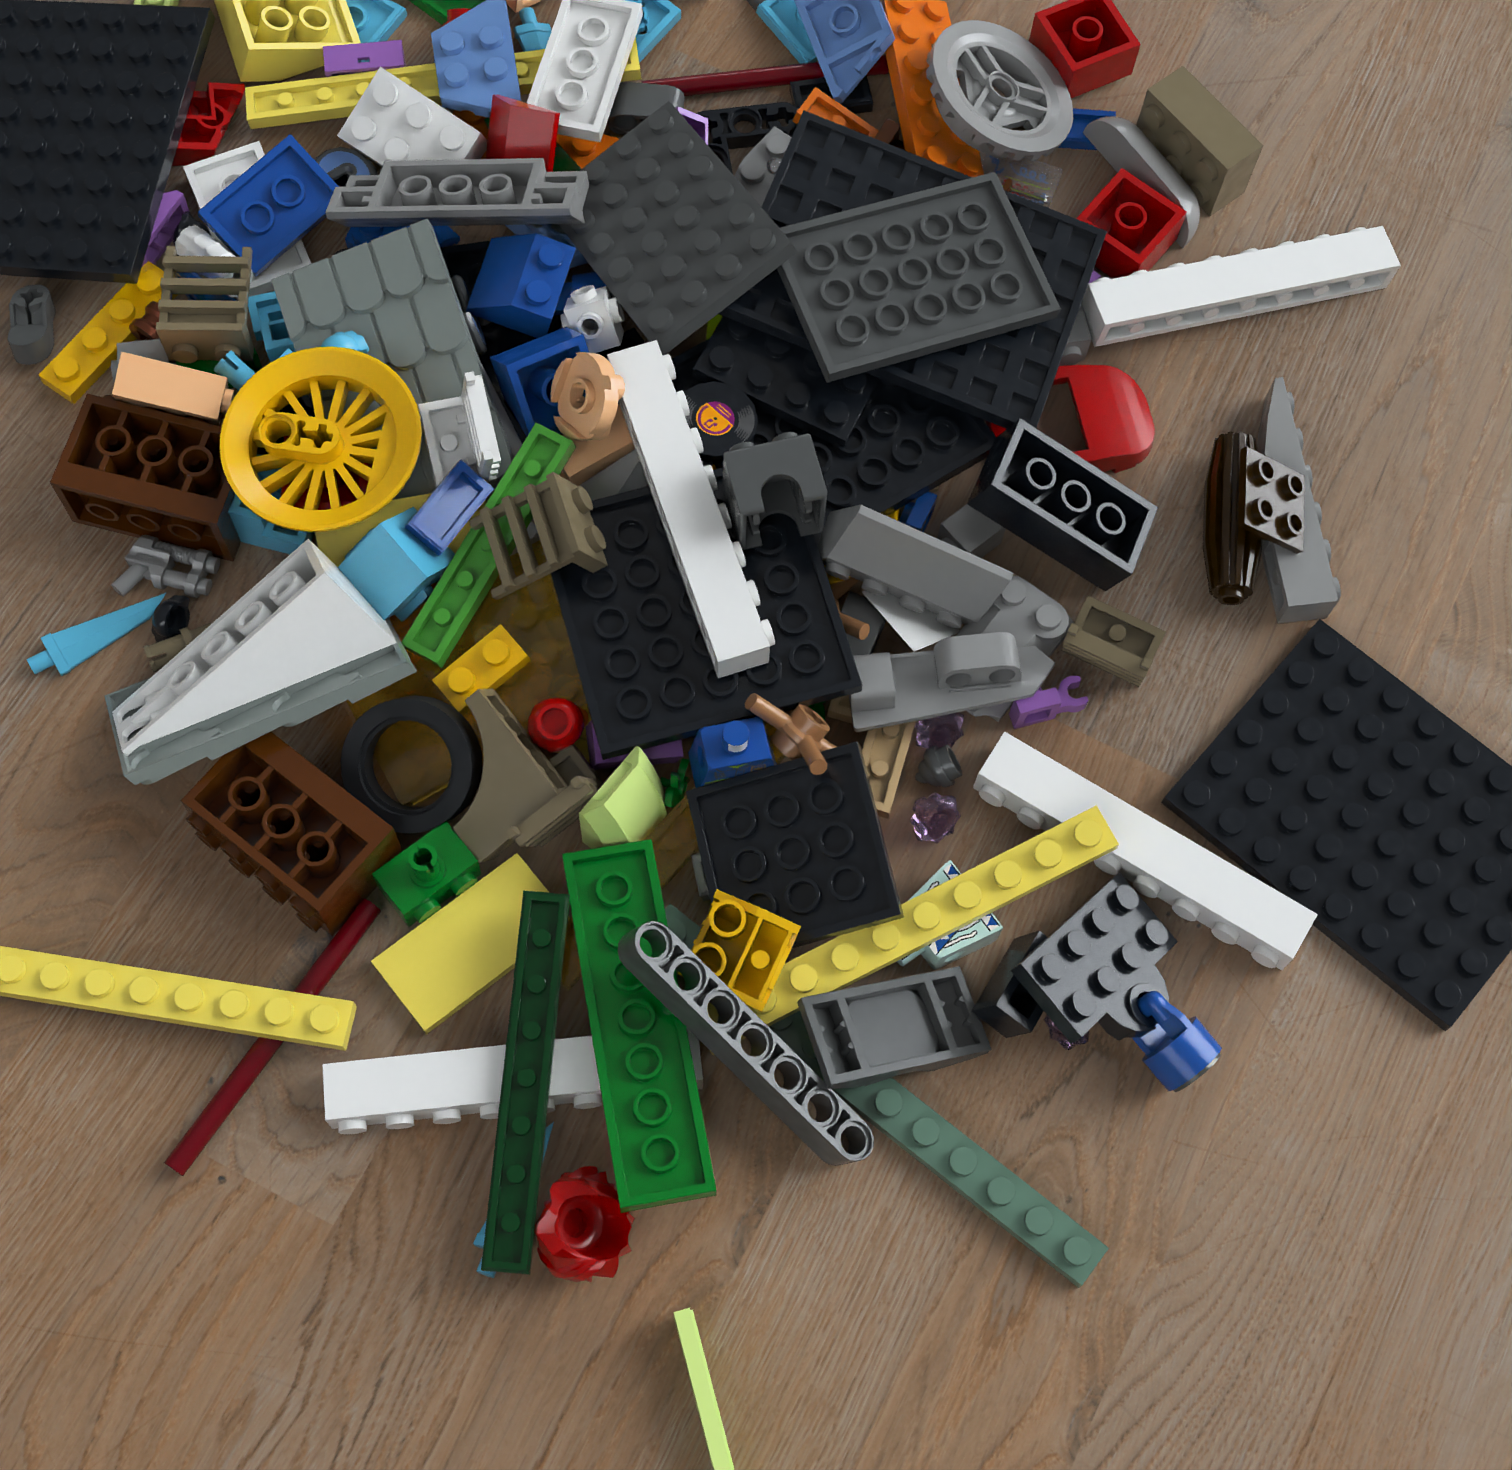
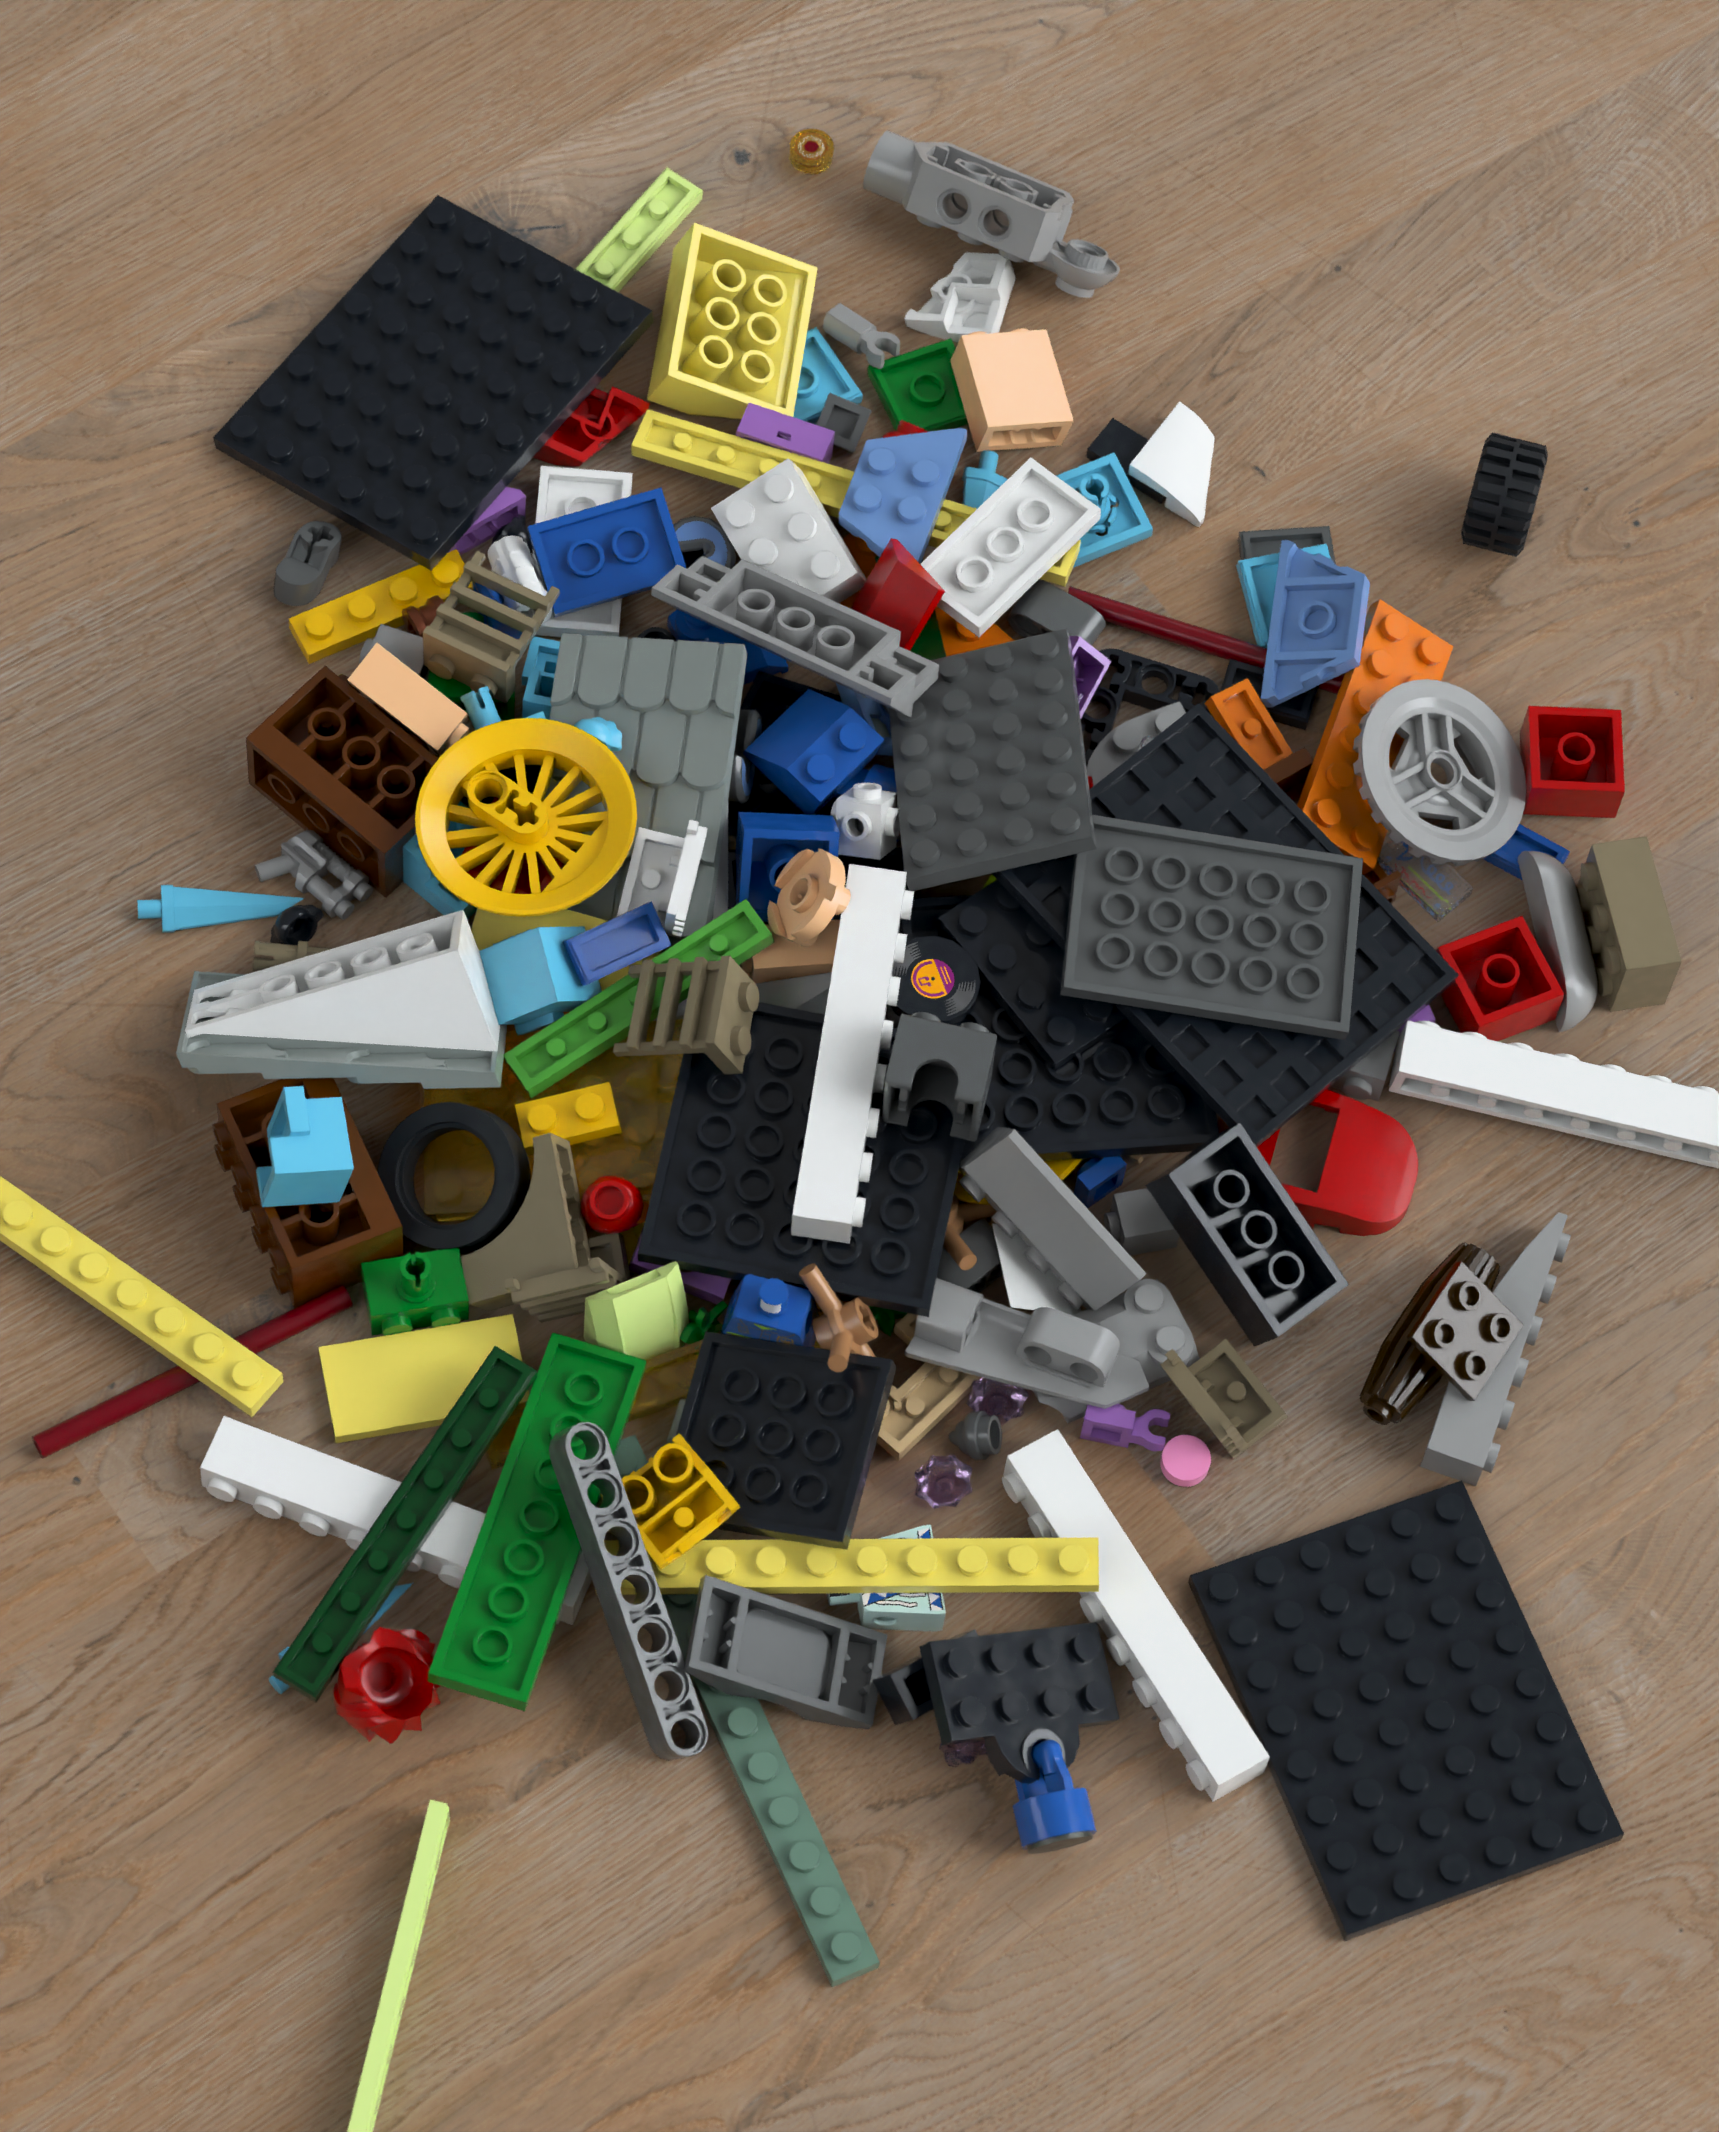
camera: 25 degrees right, 5 degrees down
(280, 805) = (306, 1151): none -> medium azure plate
(405, 28) = (845, 419): none -> dark grey plate
(1106, 706) = (1185, 1460): none -> bright pink tile

